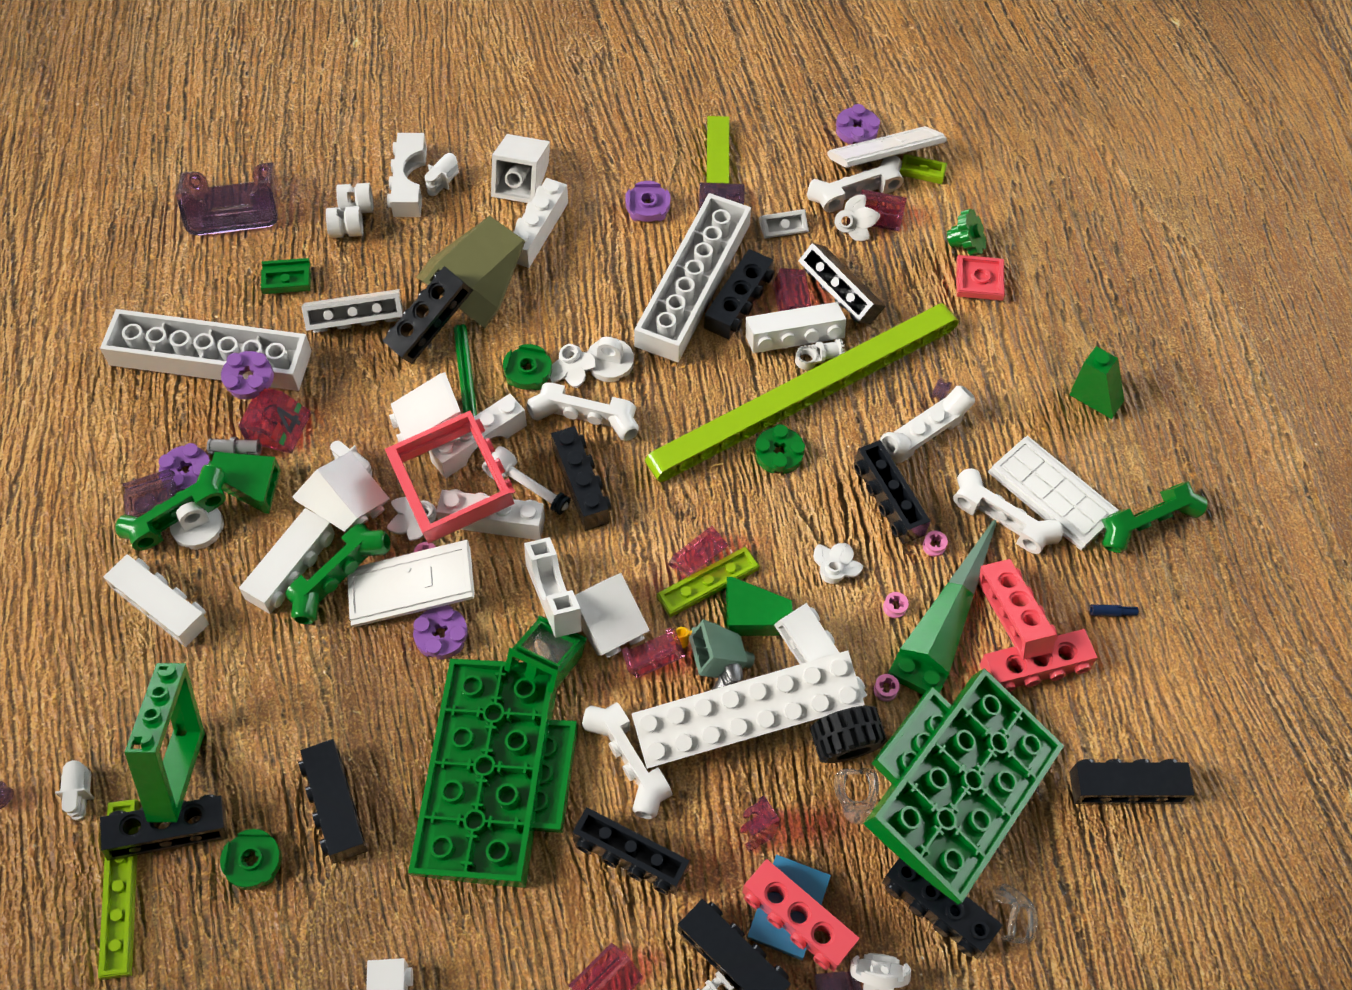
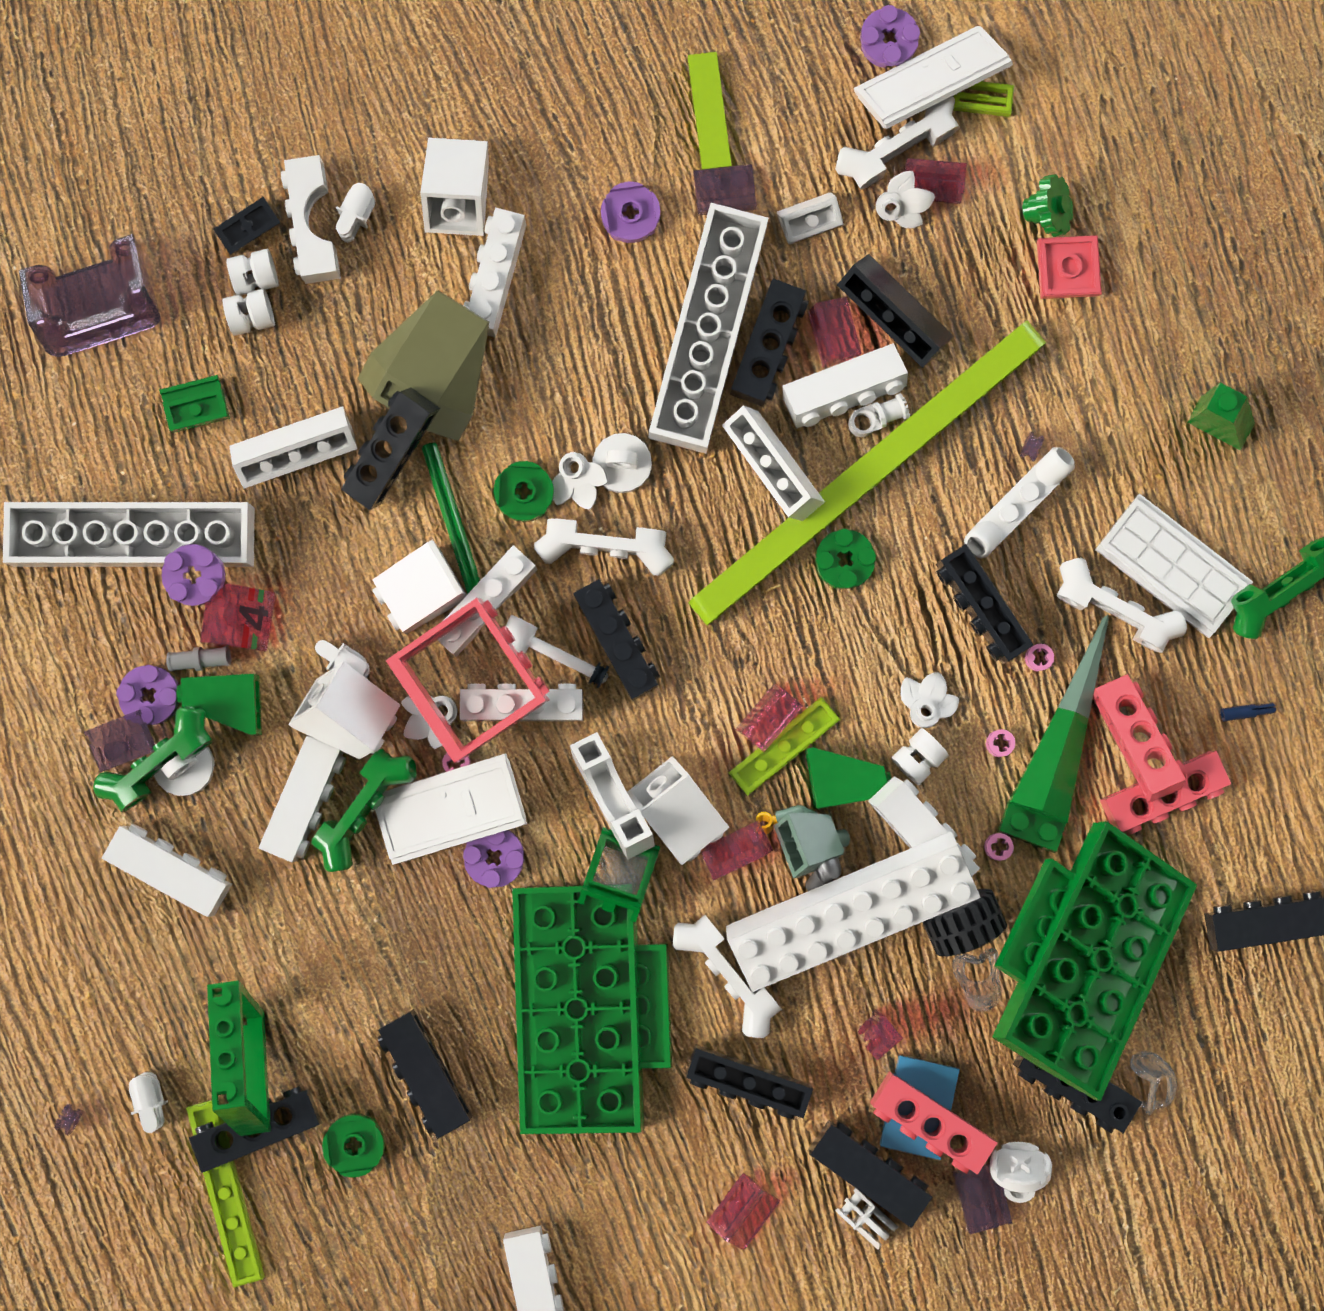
camera: 10 degrees left, 25 degrees up
(359, 168) = (246, 225): none -> black hinge
(730, 366) = (773, 463): none -> white brick
(827, 599) = (927, 749): none -> white wheel

